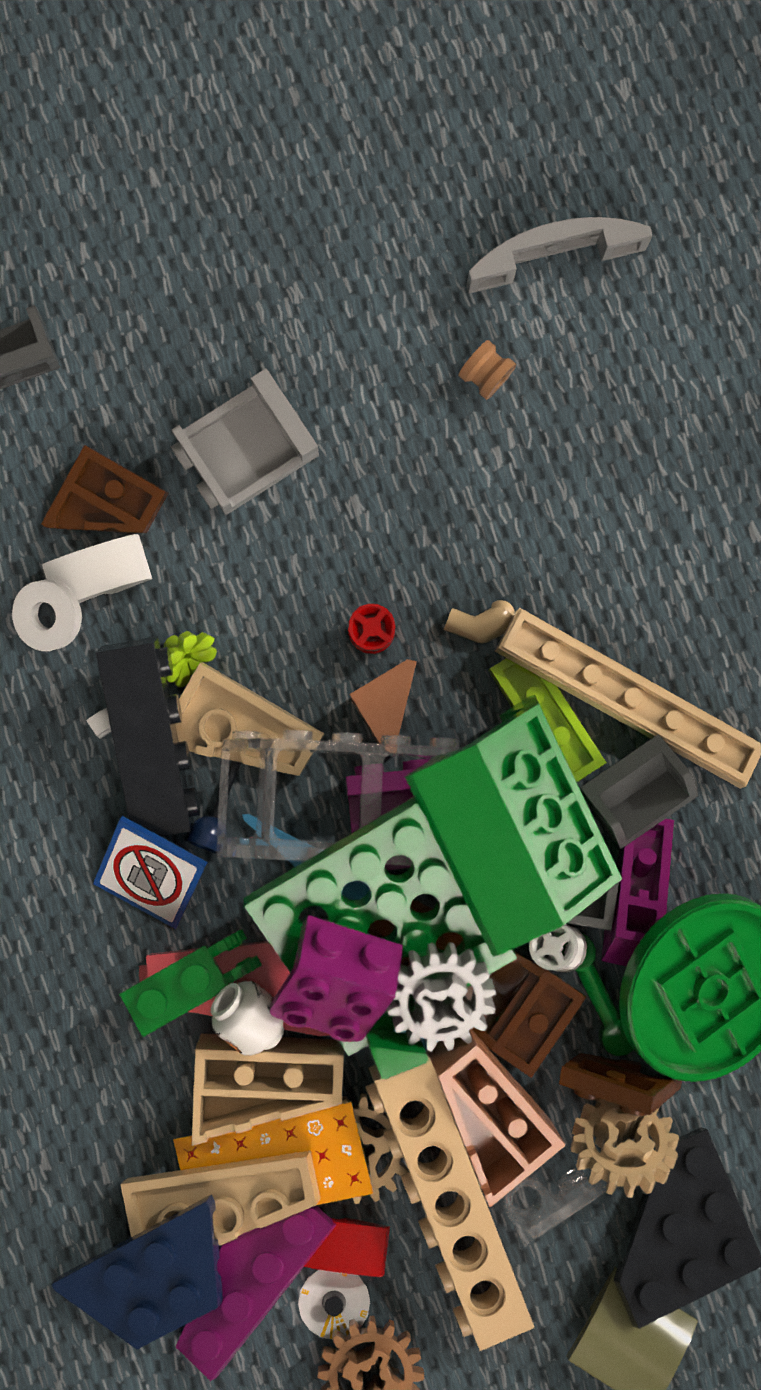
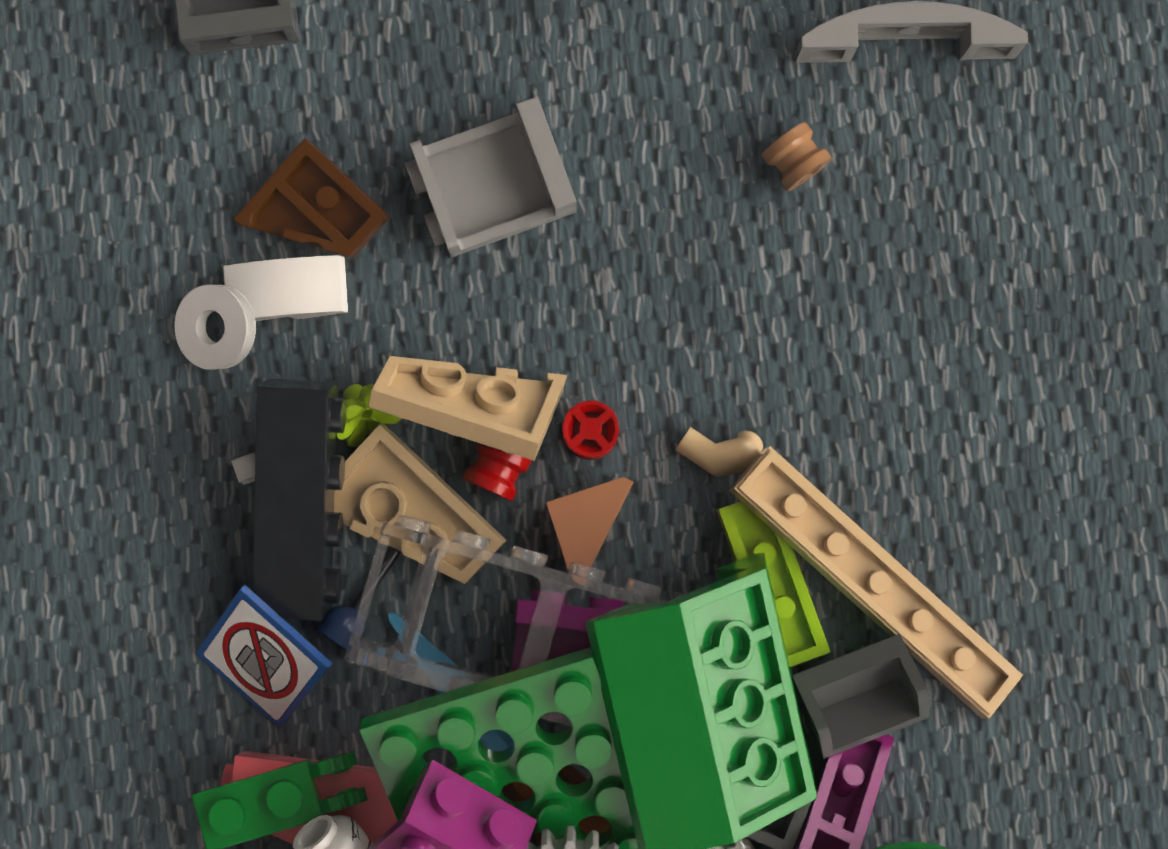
camera: 15 degrees right, 0 degrees up
(280, 630) = (481, 408): none -> tan wing
(303, 677) = (496, 471): none -> red wheel

